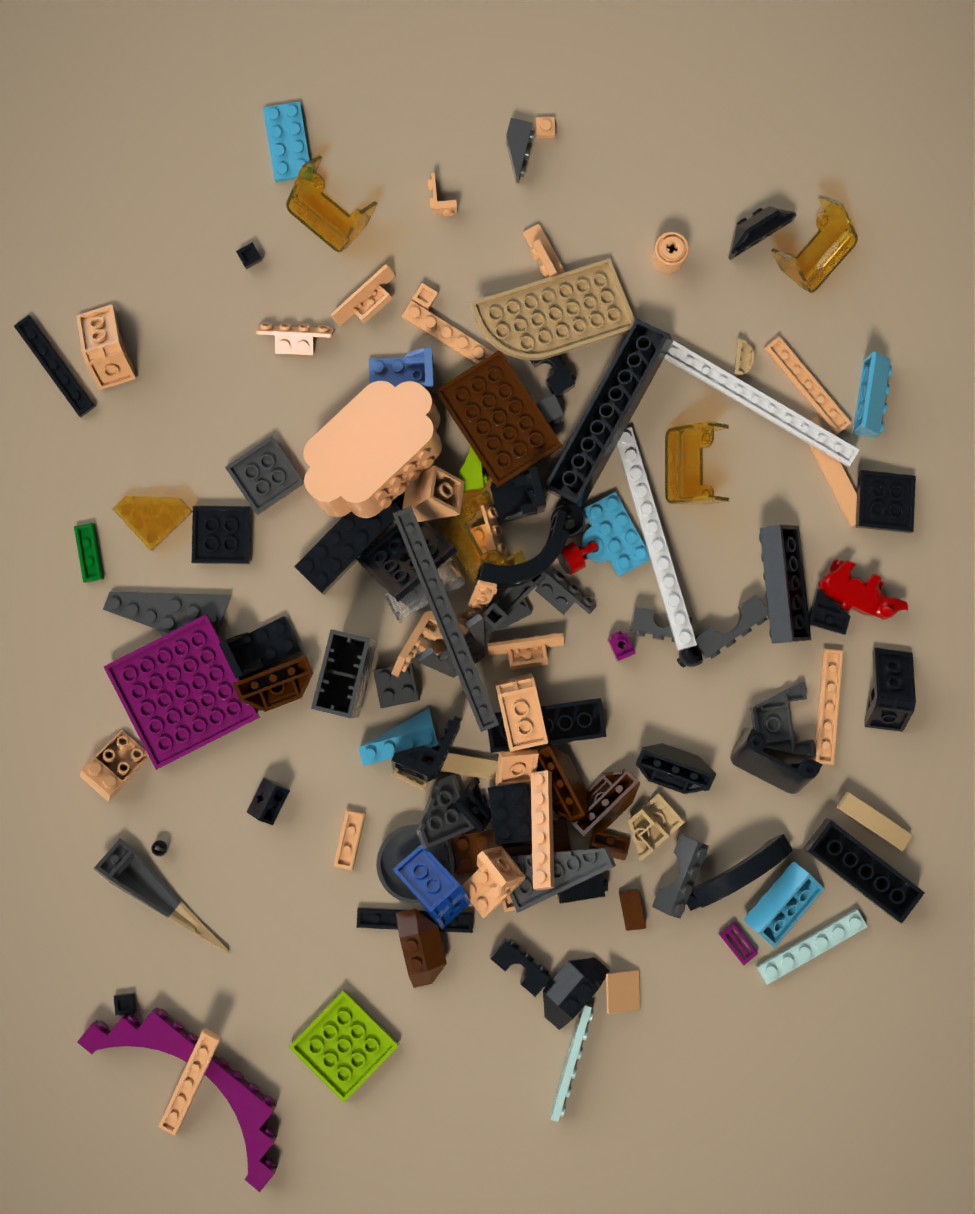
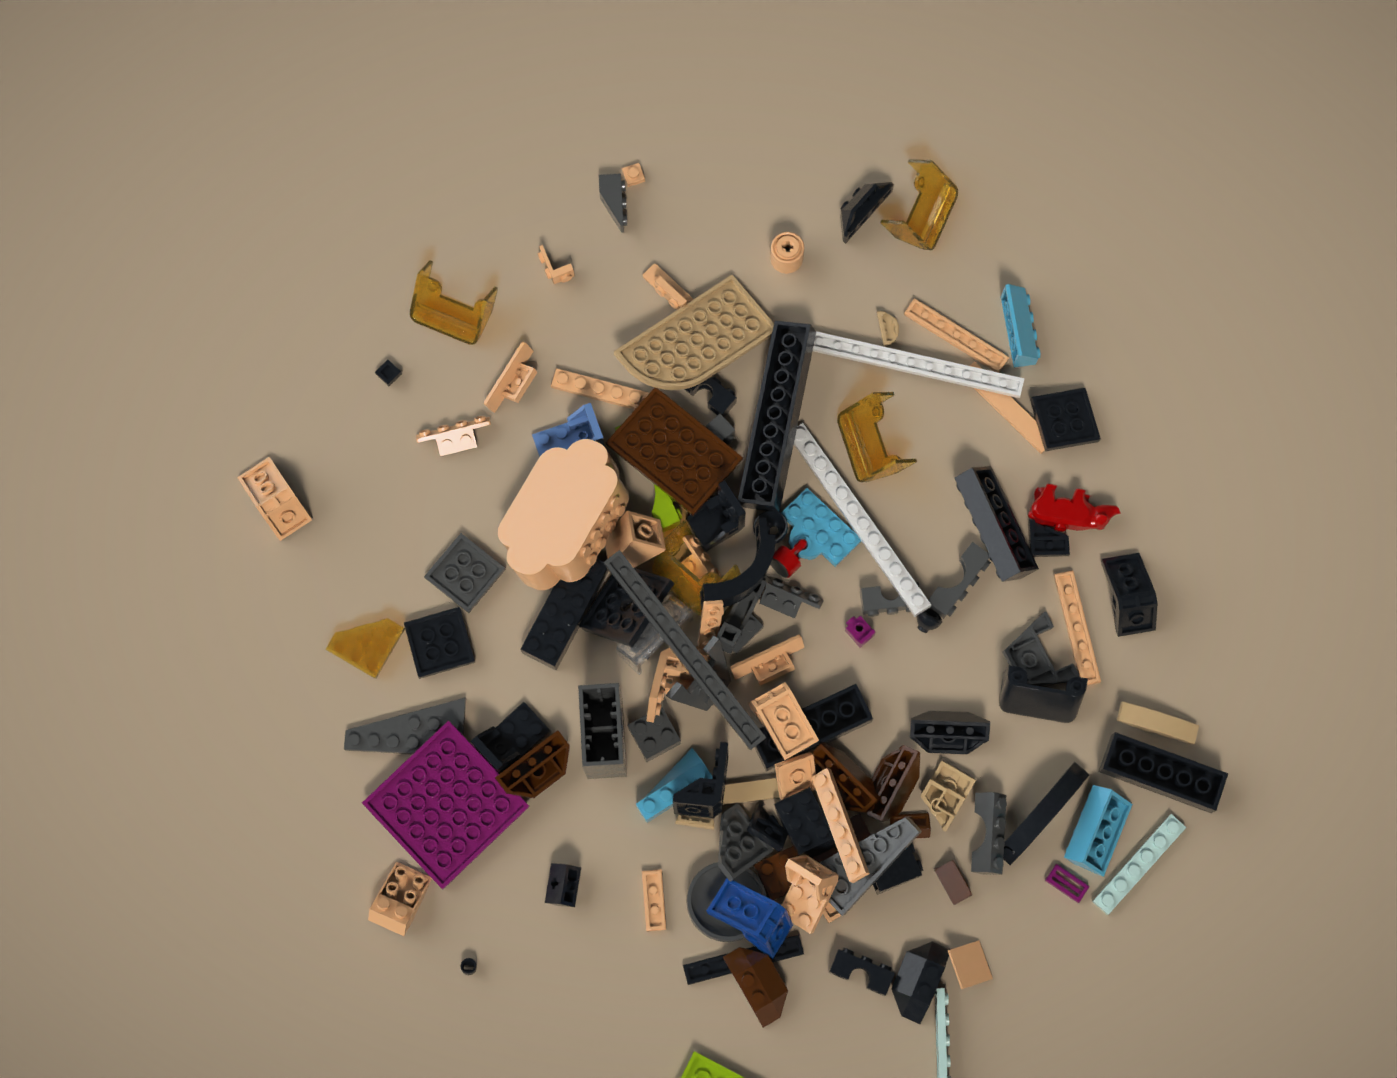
camera: 15 degrees left, 10 degrees down
(54, 366) = (229, 532): black tile -> none
(88, 552) = (313, 699): green tile -> none
(132, 874) = (452, 1002): dark grey plate -> none
(286, 140) = (392, 257): medium azure plate -> none
(425, 296) = (568, 360): light nougat plate -> none

